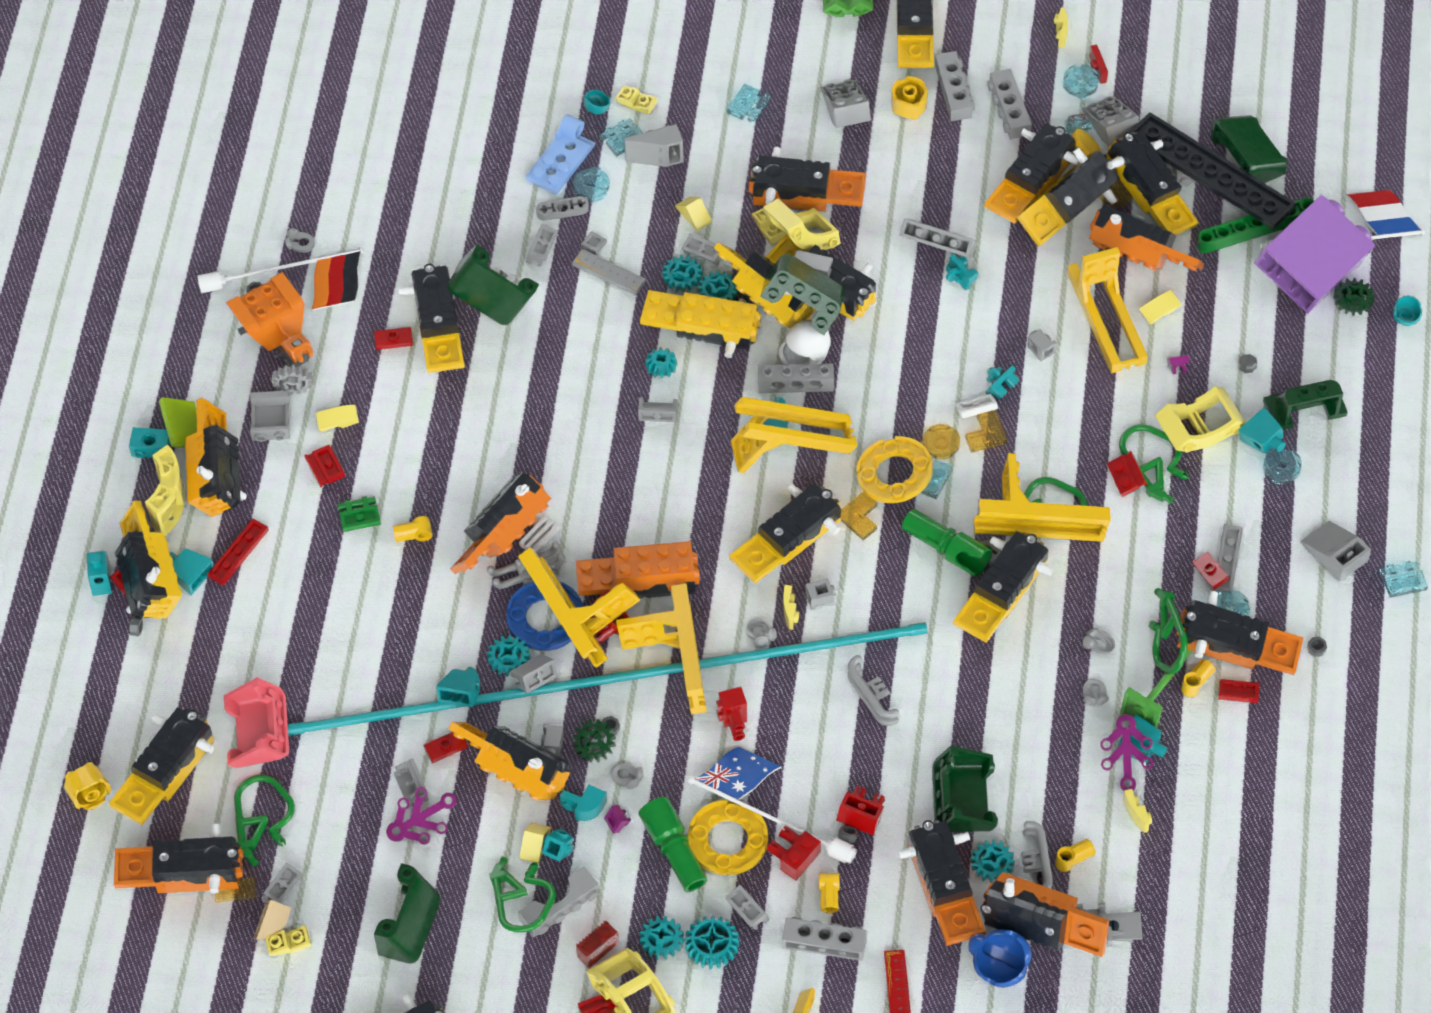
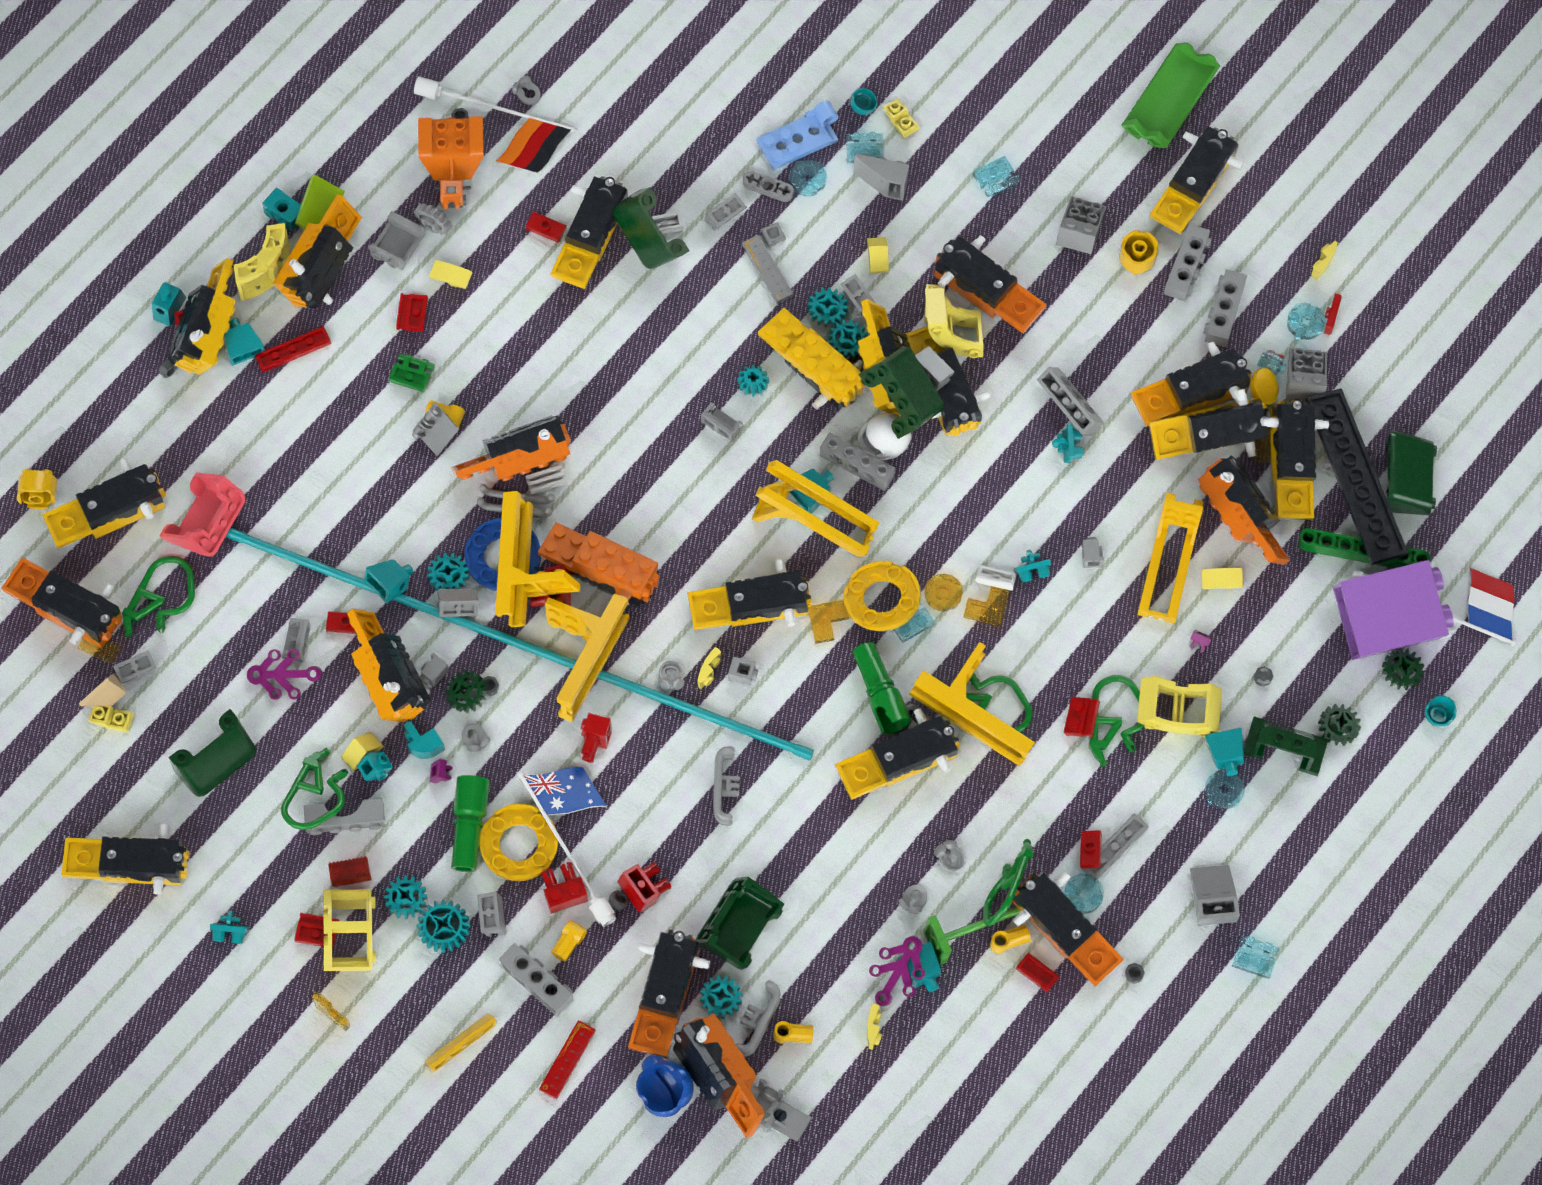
camera: 30 degrees right, 10 degrees up
(414, 545) = (435, 429): none -> light grey hinge
(1336, 365) = (1331, 725): none -> dark green gear

